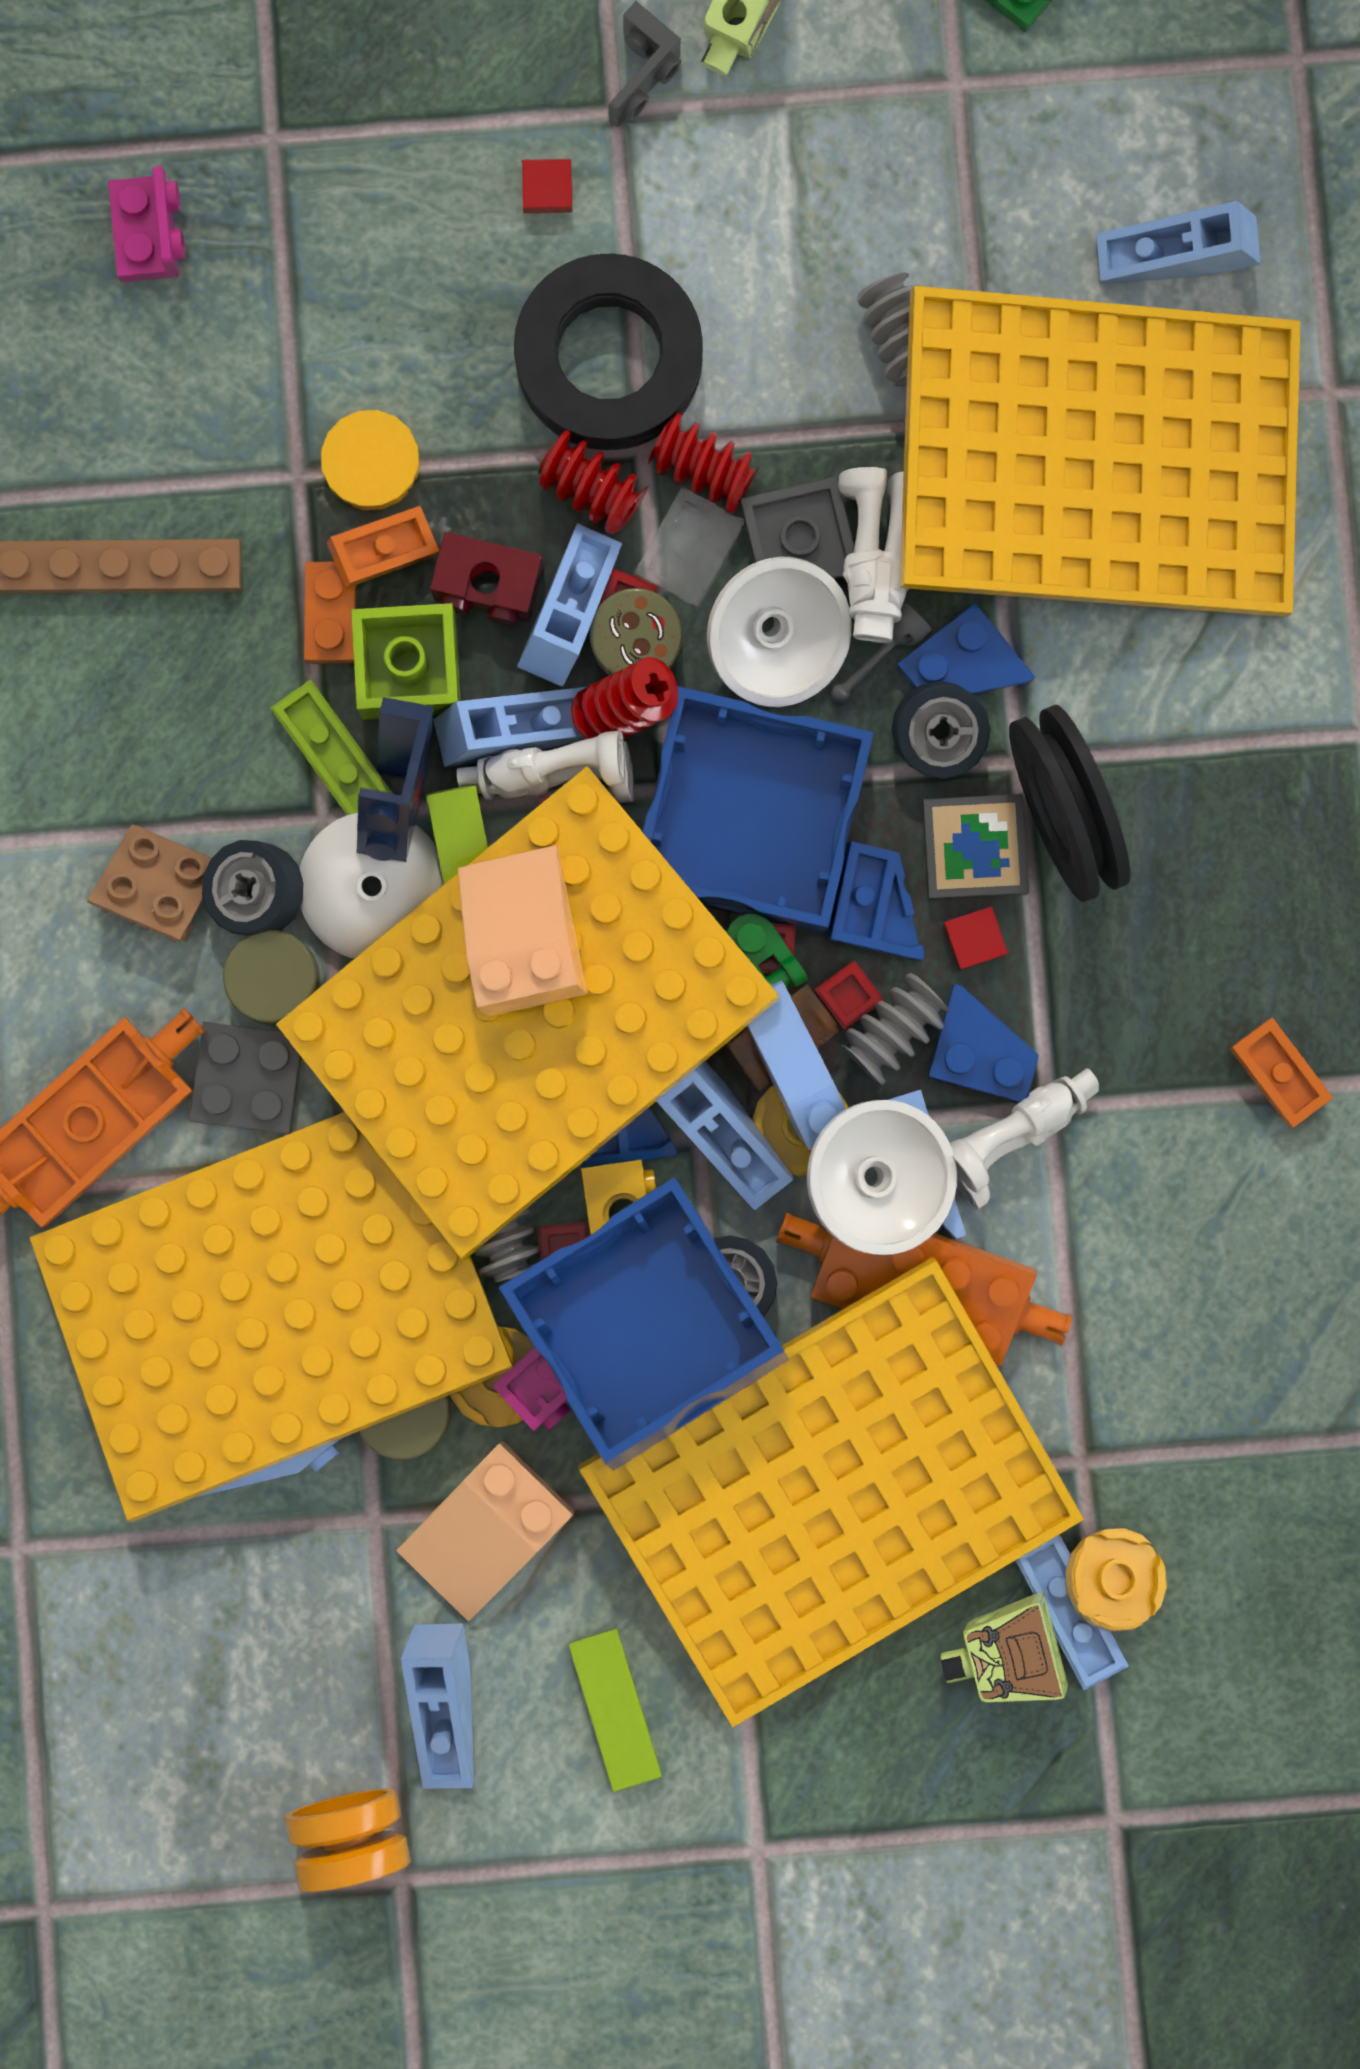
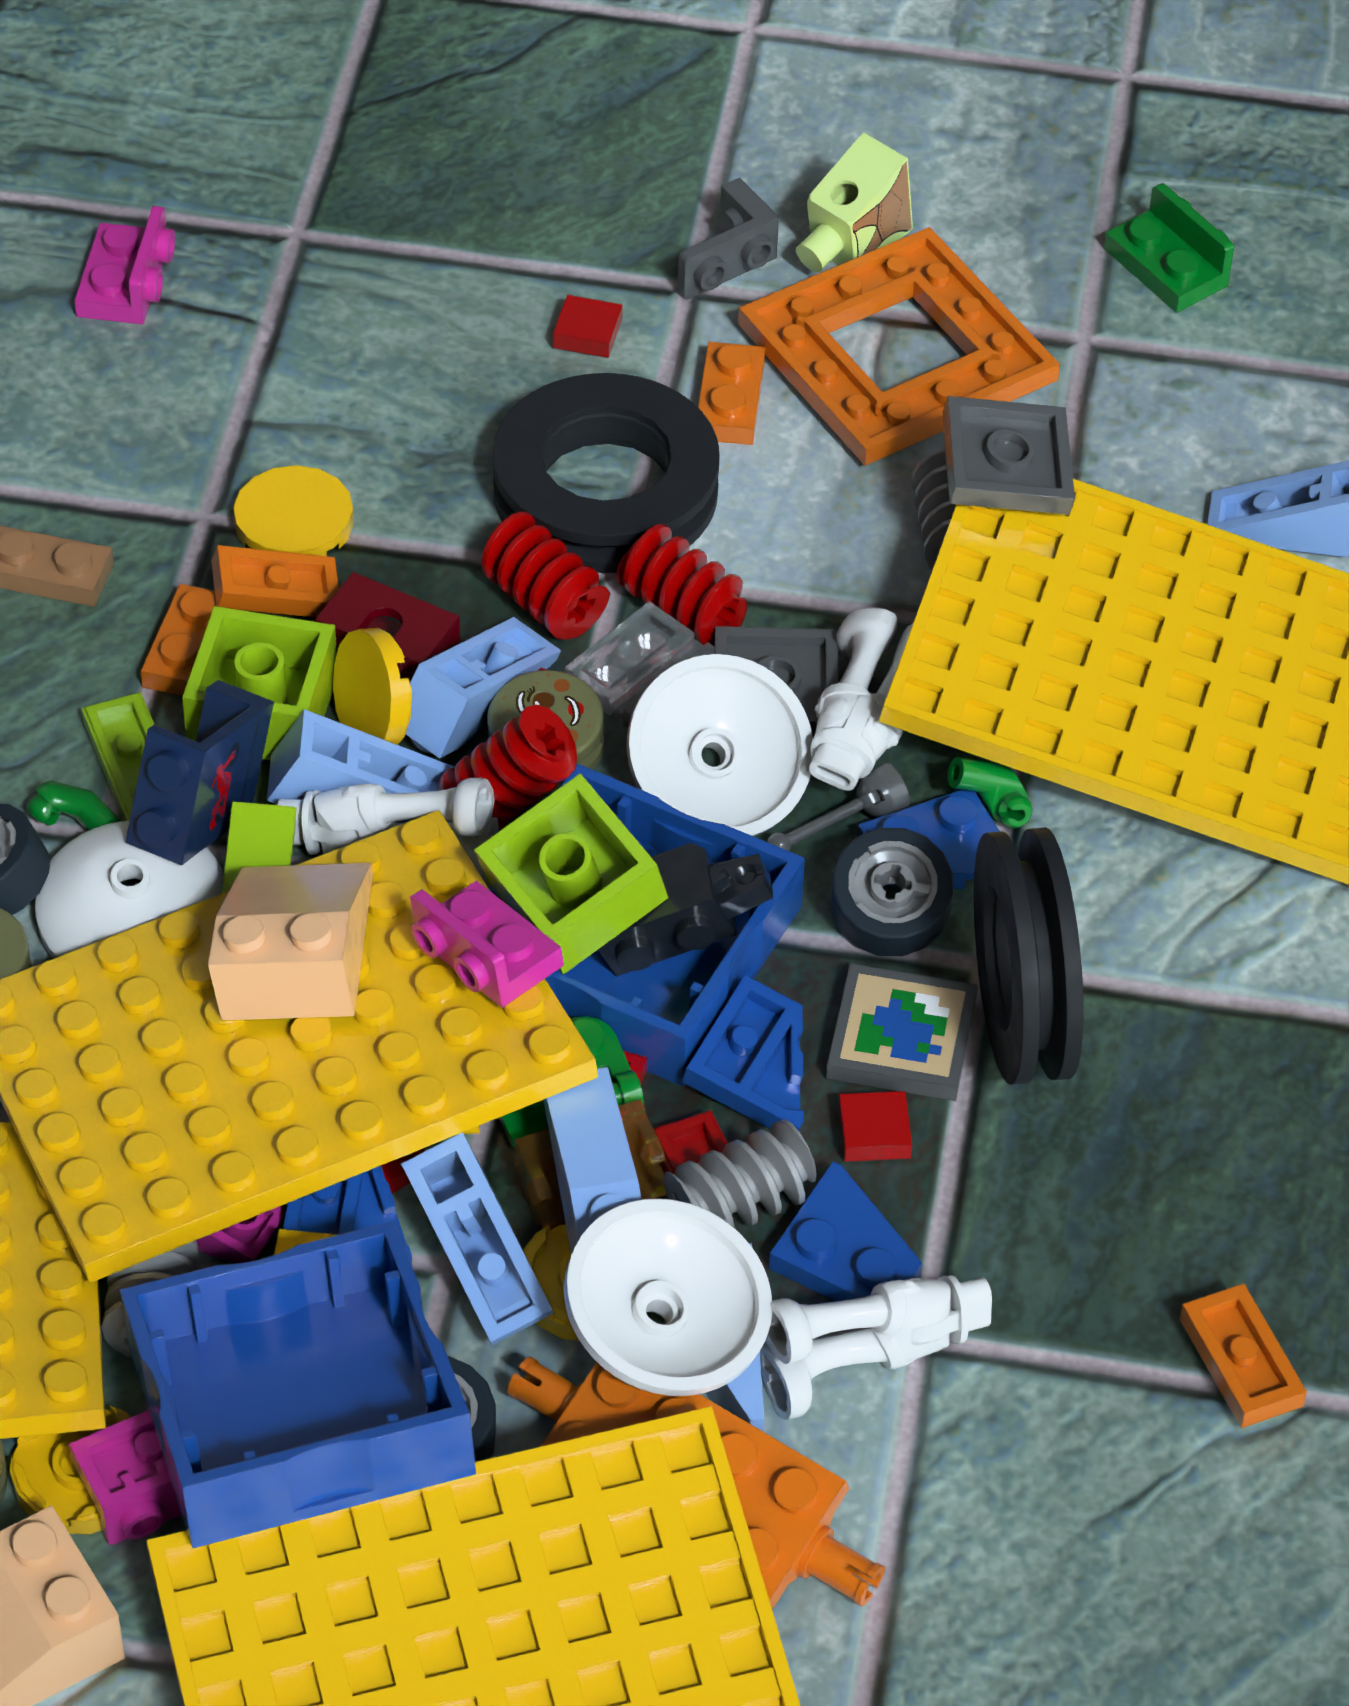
camera: 15 degrees right, 35 degrees down
(295, 800) = (80, 803): none -> green arm
(493, 648) = (370, 686): none -> yellow tile
(669, 911) = (484, 942): none -> dark pink bracket
(684, 229) = (732, 390): none -> orange plate
(712, 822) = (573, 871): none -> lime brick
(784, 802) = (697, 911): none -> black hinge
(814, 52) = (795, 326): none -> orange plate
(945, 299) = (1008, 455): none -> dark grey plate
(1001, 608) = (996, 786): none -> green arm

